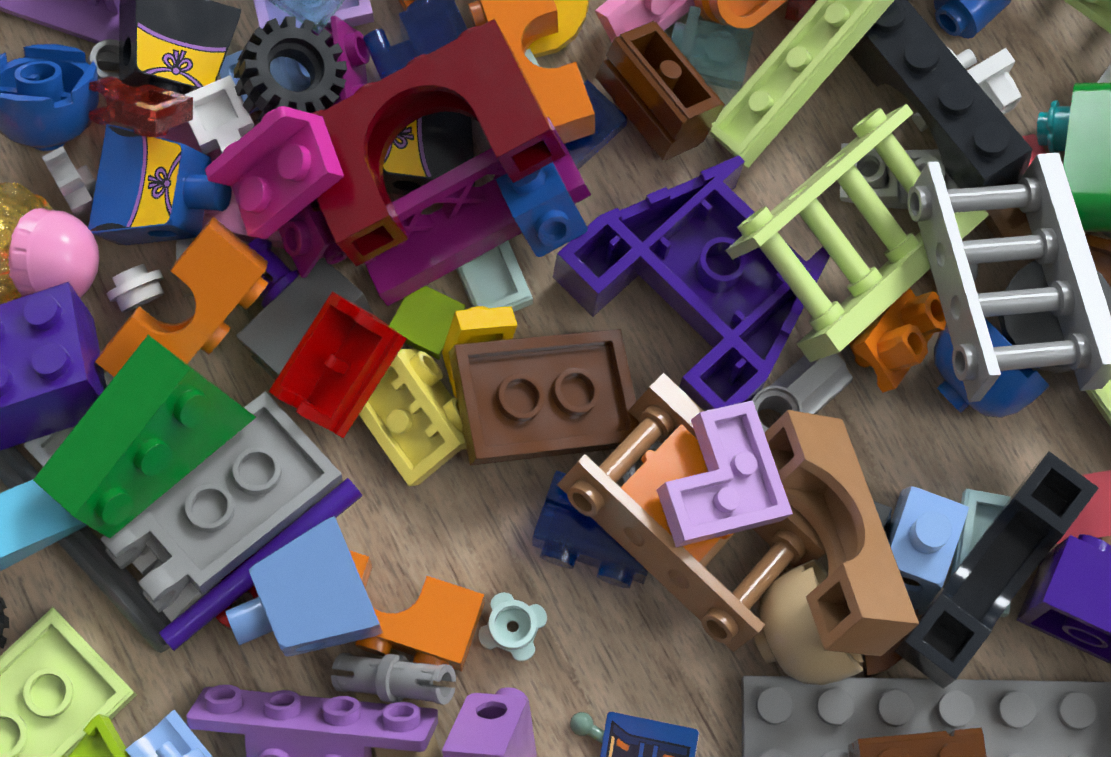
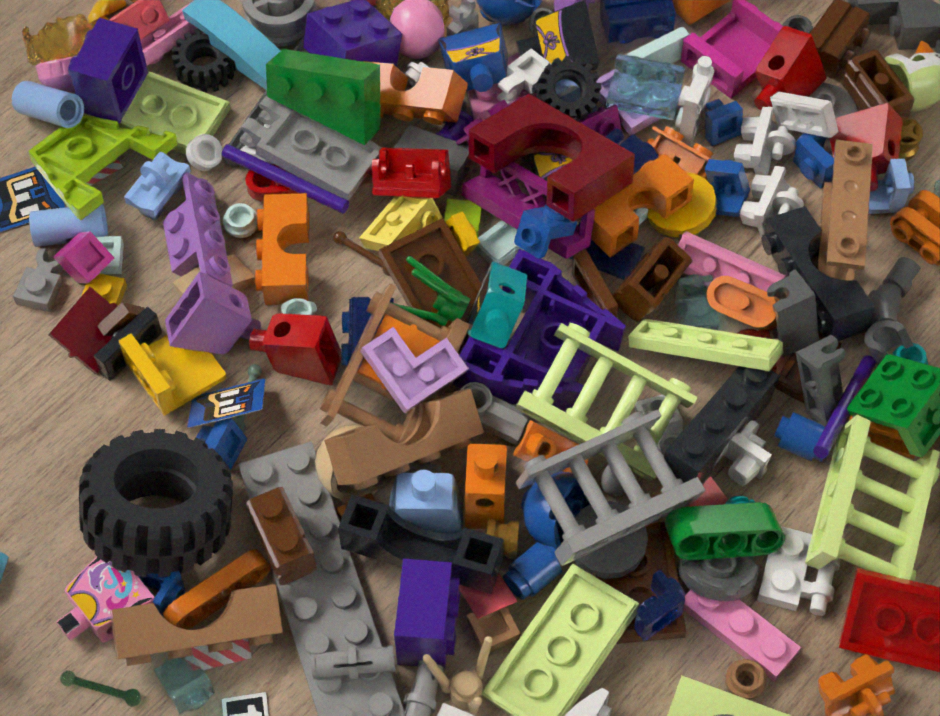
camera: 75 degrees right, 15 degrees down
(142, 678) = (204, 152): none -> white tile
(144, 108) = (513, 31): clear red plate -> none
(278, 168) = (506, 92): dark pink bracket -> none
(299, 671) = (240, 220): none -> light aqua plate
(307, 596) = (271, 194): medium blue torso -> none
(390, 515) = (340, 238): none -> reddish brown hinge
(393, 678) = (243, 261): light grey pin -> none
(600, 393) = (449, 302): none -> green plant
(602, 625) = (299, 346): none -> red torso
(635, 175) = (591, 281): none -> reddish brown tile
(657, 321) = (495, 310): none -> teal torso
(911, 444) = (485, 480): none -> orange torso
(998, 457) = (508, 532): none -> pearl gold wheel
(1060, 426) = (532, 571): none -> blue brick

